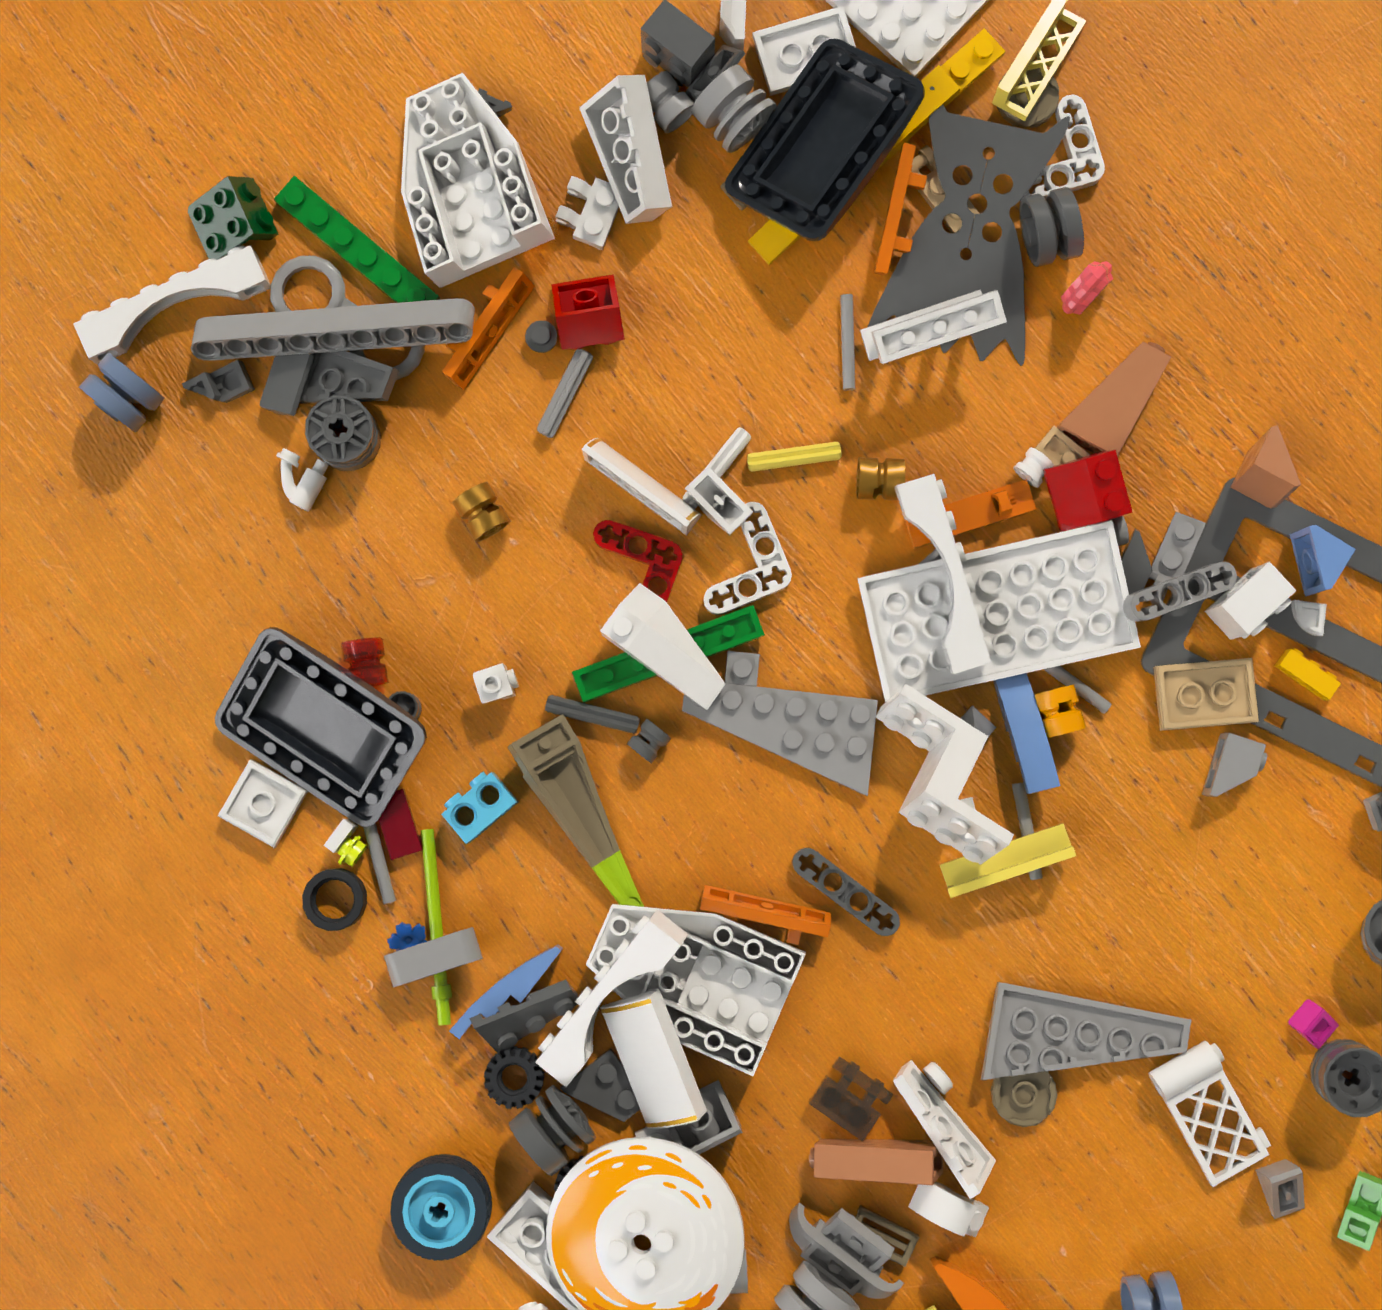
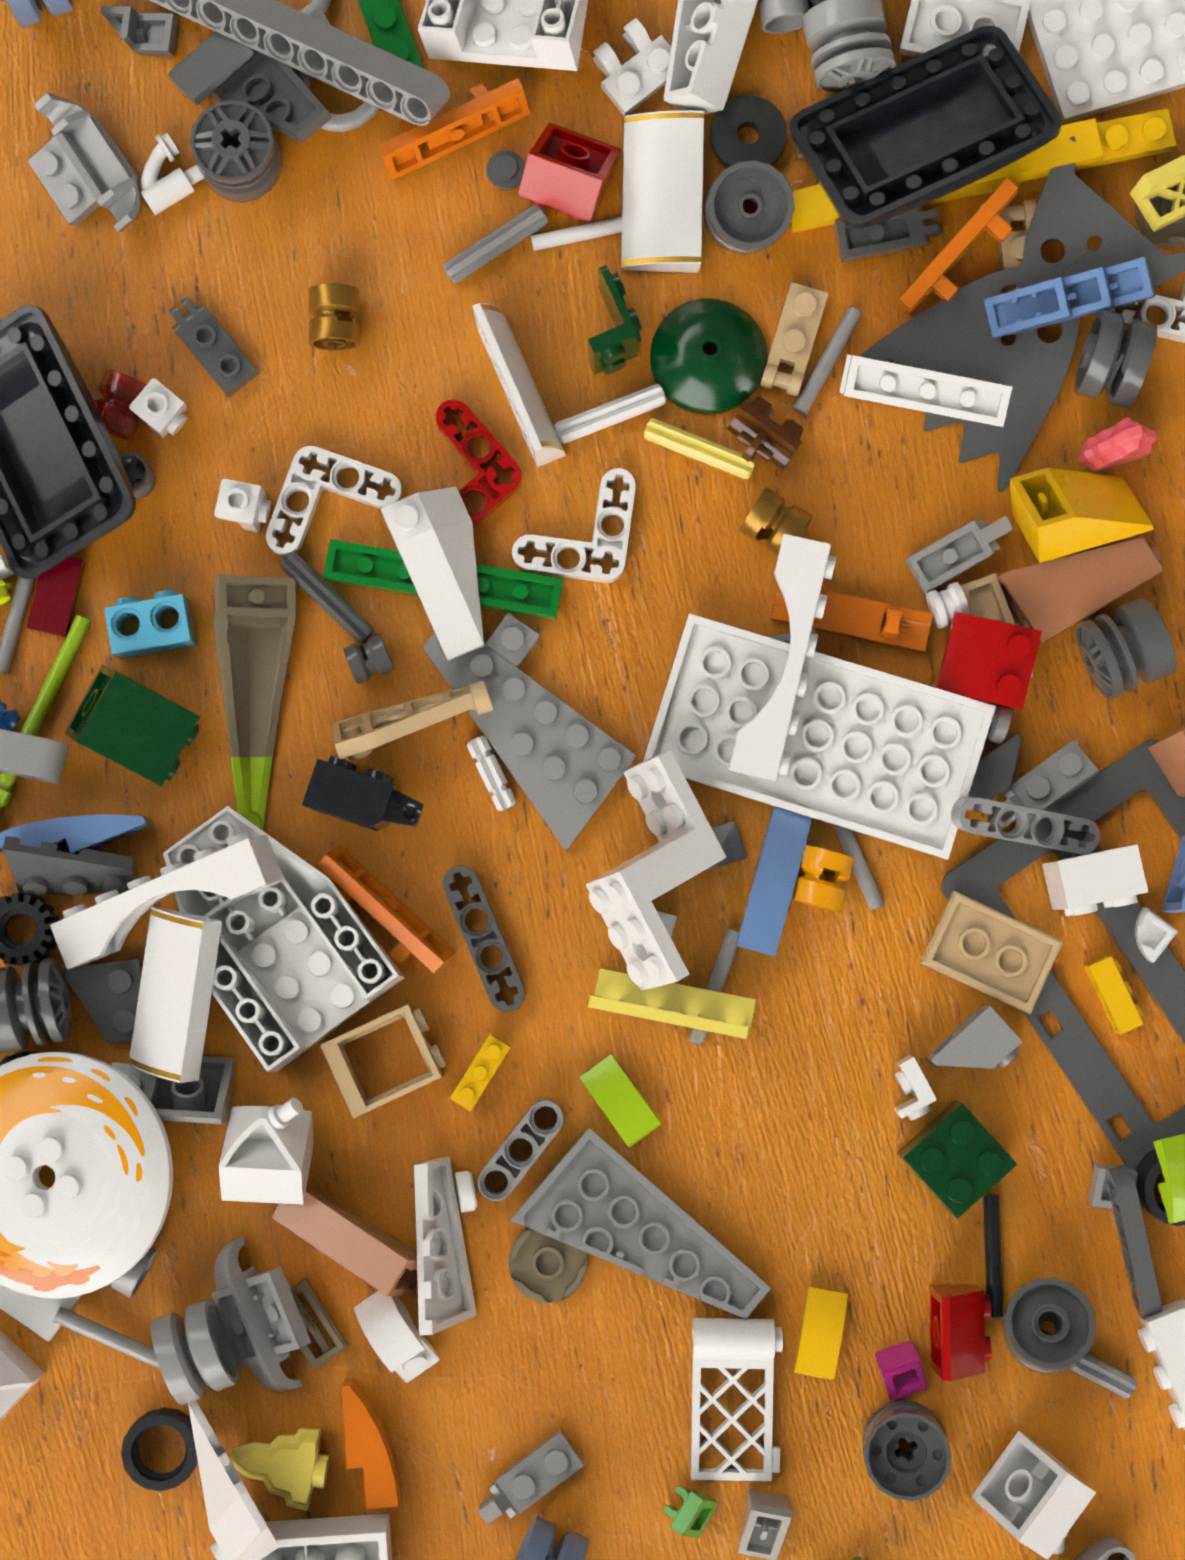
camera: 35 degrees right, 0 degrees up
(238, 505) = (84, 165): none -> light grey plate
(396, 649) = (160, 409): none -> white bracket
(405, 582) = (213, 347): none -> dark grey hinge
(508, 886) = (133, 726): none -> dark green slope
(535, 640) = (313, 485): none -> white beam
(624, 346) = (576, 233): none -> white bar
(662, 288) = (662, 191): none -> white slope
(678, 803) = (357, 736): none -> tan plate
(694, 422) = (613, 347): none -> dark green bracket
(703, 844) = (359, 798): none -> black hinge
(705, 196) = (753, 113): none -> pearl dark grey tile
(713, 271) = (731, 224): none -> dark grey wheel
(718, 501) = (589, 446): white slope -> none
(757, 408) = (703, 381): none -> dark green dish
(782, 771) = (491, 773): none -> white axle
(786, 1135) = (267, 1154): none -> white piece
(809, 1048) = (345, 1073): none -> tan window
(815, 339) = (794, 337): none -> tan plate
(834, 421) = (763, 435): none -> reddish brown hips
(843, 1106) = (349, 1164): clear smoke plate -> none
(847, 226) = (888, 236): none -> dark grey hinge
(899, 987) = (480, 1072): none -> yellow piece
(959, 1041) = (516, 1168): none -> light grey beam
(994, 202) = (1069, 297): none -> medium blue slope
(1008, 950) = (620, 1100): none -> lime slope
(1018, 426) = (956, 552): none -> light grey hinge
(1085, 350) = (1074, 511): none -> yellow slope
(1101, 1252) = (531, 1477): none -> light grey hinge
(1177, 426) = (1126, 648): none -> dark grey wheel
(1205, 816) = (913, 1080): none -> white bracket
(1229, 1209) = (693, 1514): none -> bright green tile
(1243, 1031) = (821, 1333): none -> yellow slope
(1267, 853) = (956, 1158): none -> dark green brick
(1330, 905) = (993, 1253): none -> black bar
(1337, 973) = (958, 1330): none -> red slope

